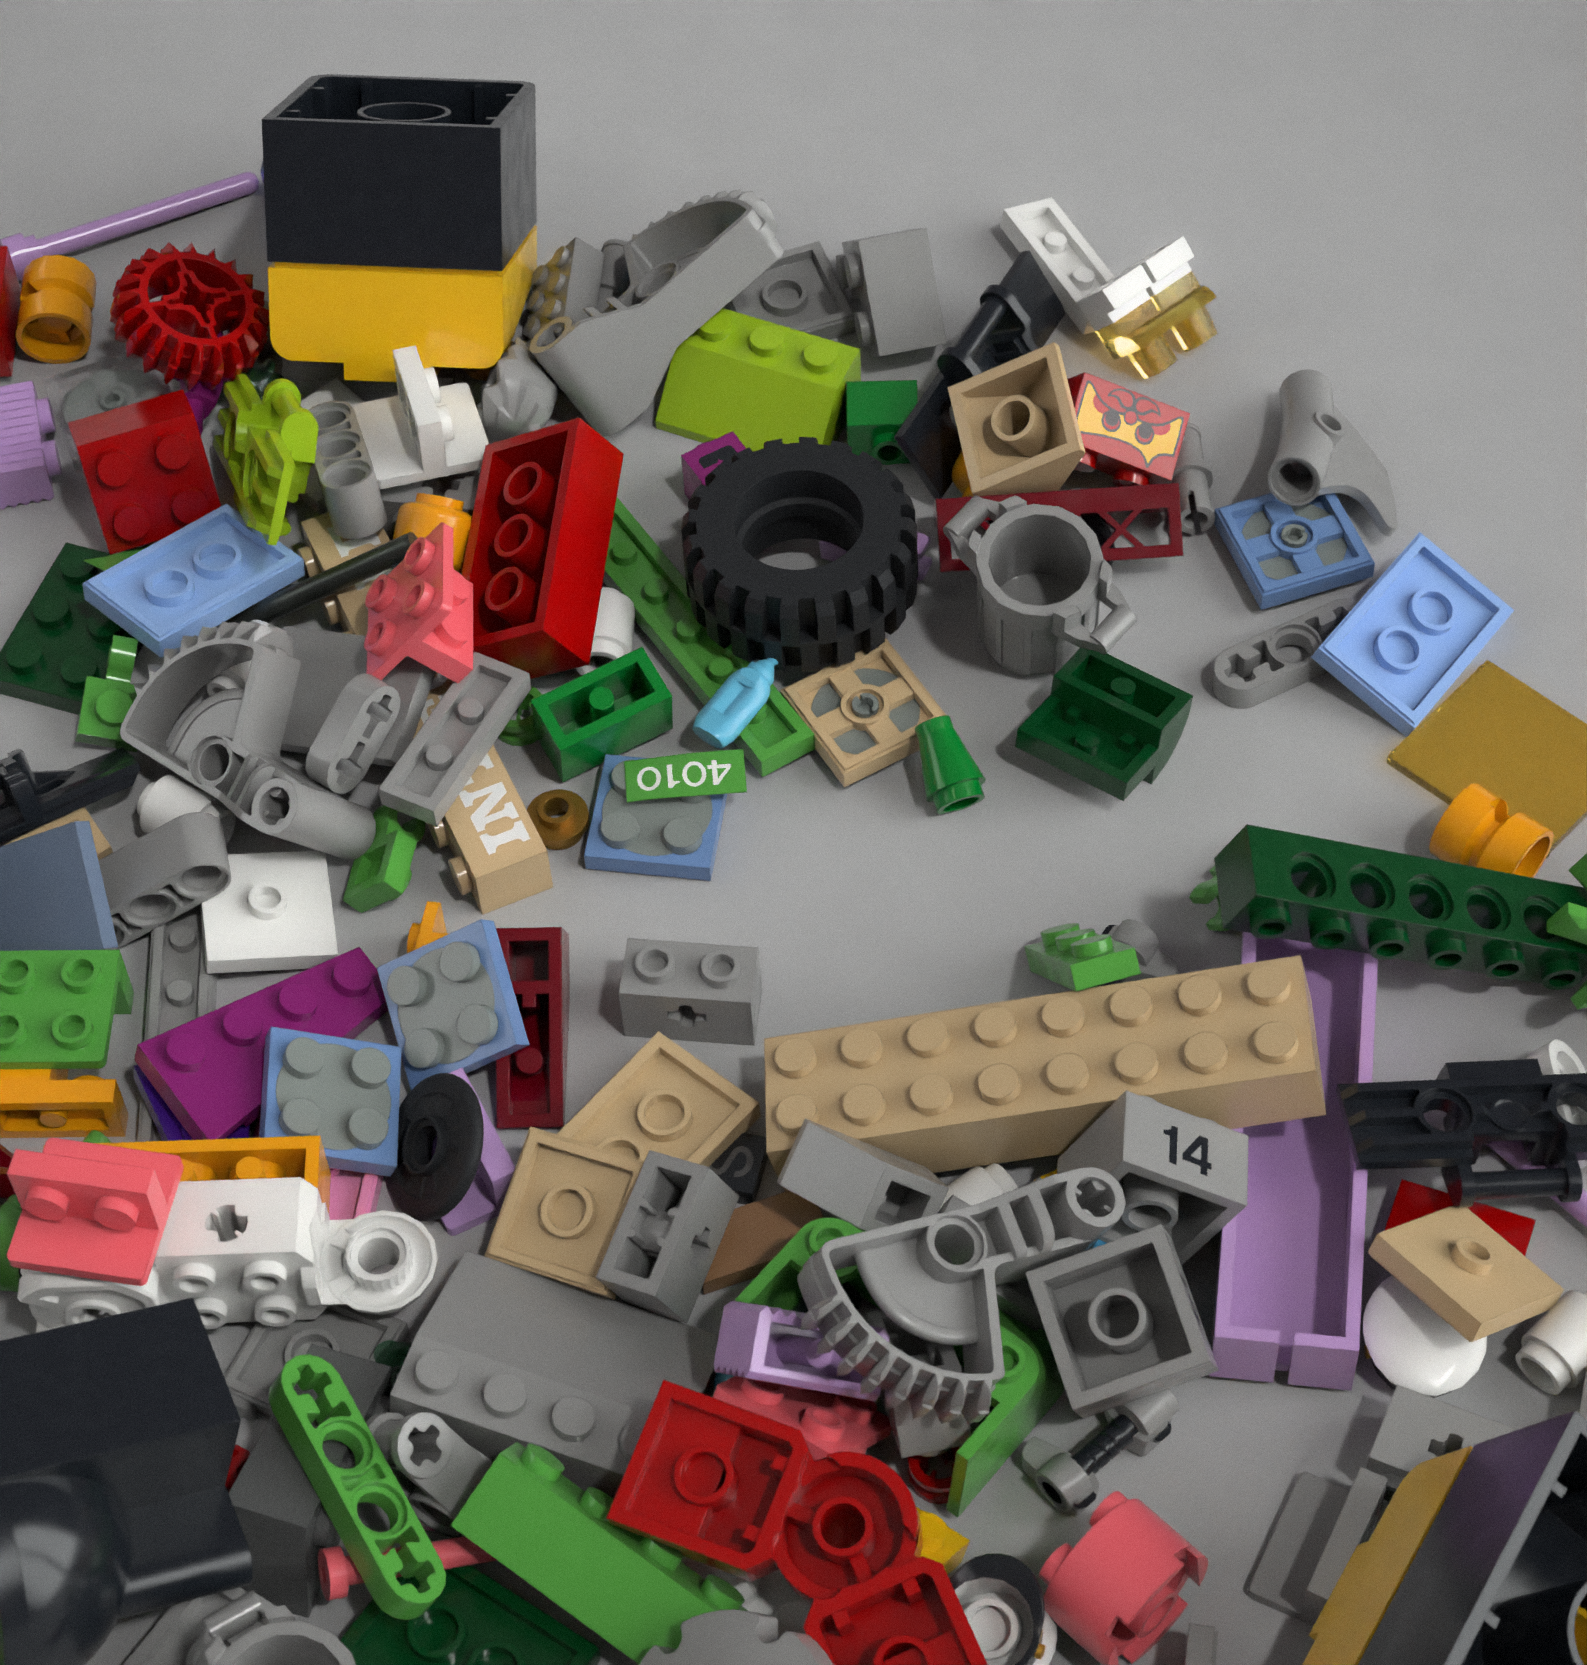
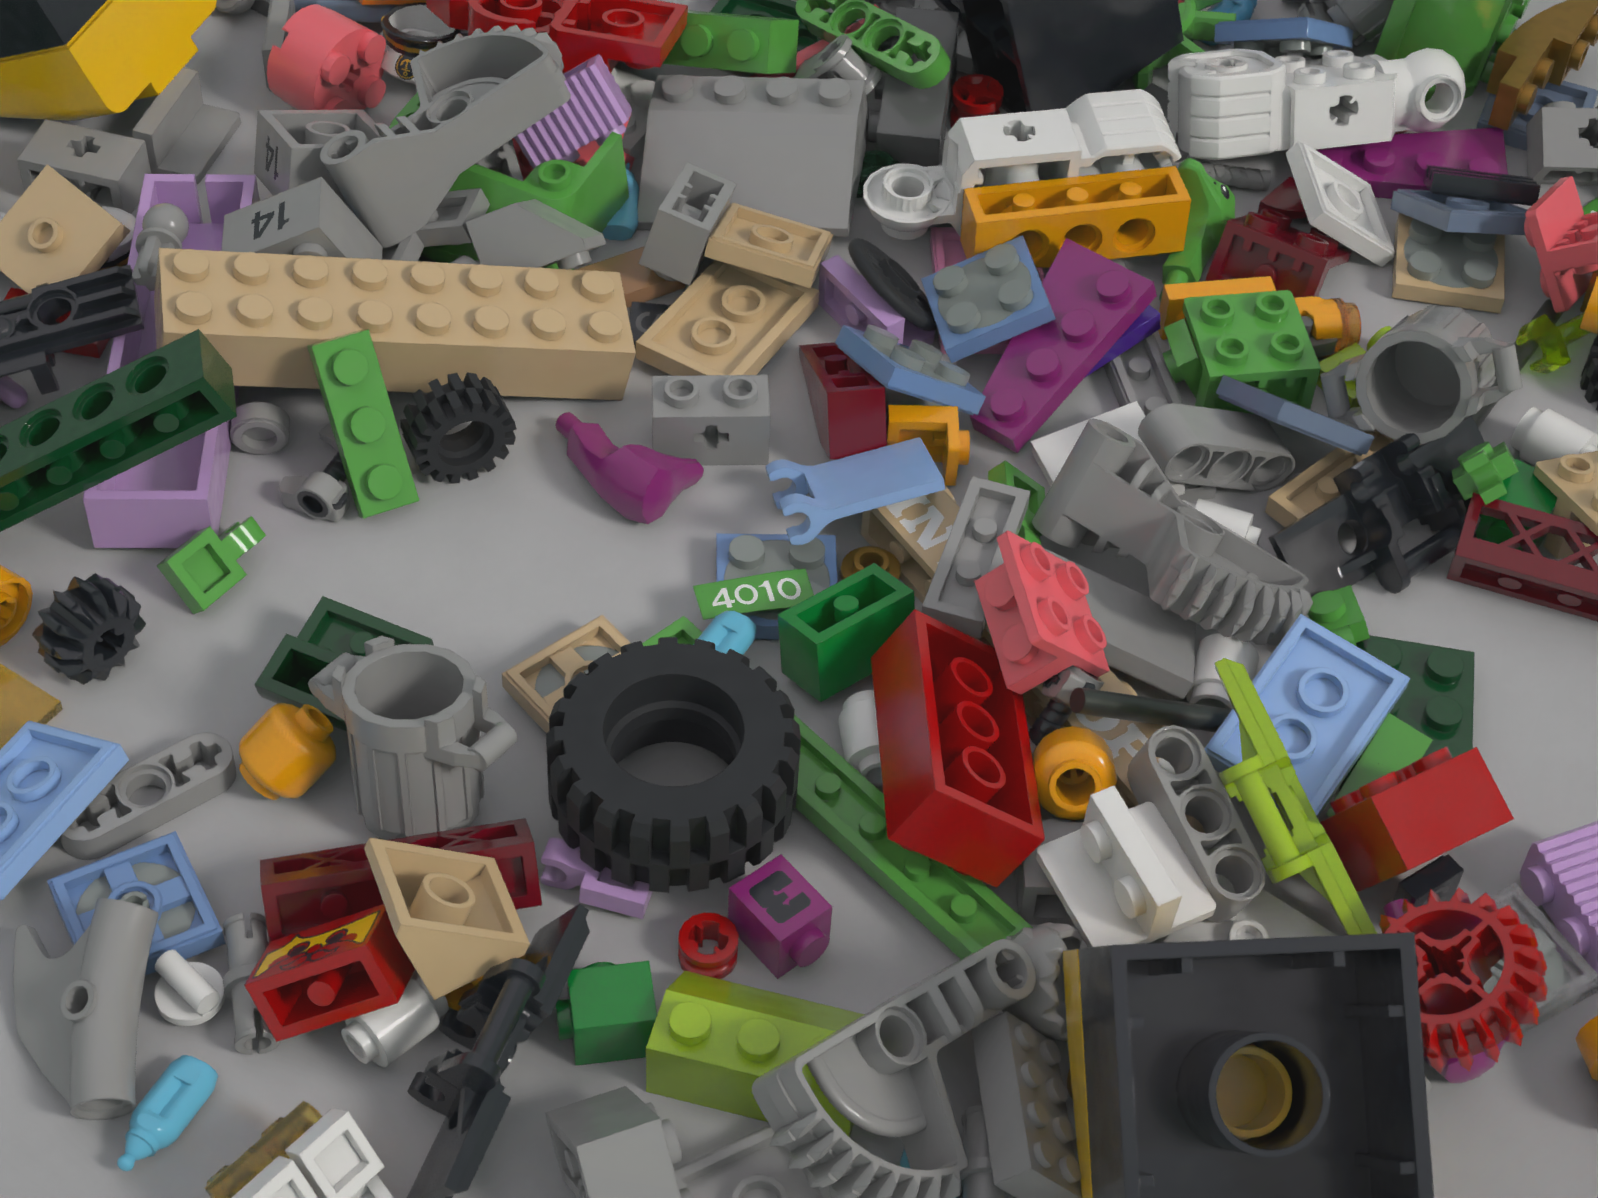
camera: 165 degrees right, 5 degrees down
(91, 1209) = (1120, 104): coral bracket -> none
(125, 1034) = (1182, 357): none -> bright green plate
(353, 733) = (1076, 532): light grey beam -> none
(545, 865) = (853, 485): none -> light blue flag
(791, 922) = (628, 478): none -> magenta animal
(948, 769) = (498, 623): green cone -> none
(975, 969) = (448, 407): none -> black tyre
(1164, 646) = (287, 751): none -> light orange head
(1238, 475) = (187, 990): none -> white plate
(1252, 401) = (167, 1109): none -> medium azure piece
(1321, 1213) = (162, 228): none -> light grey axle
(1362, 781) = (89, 628): none -> black gear

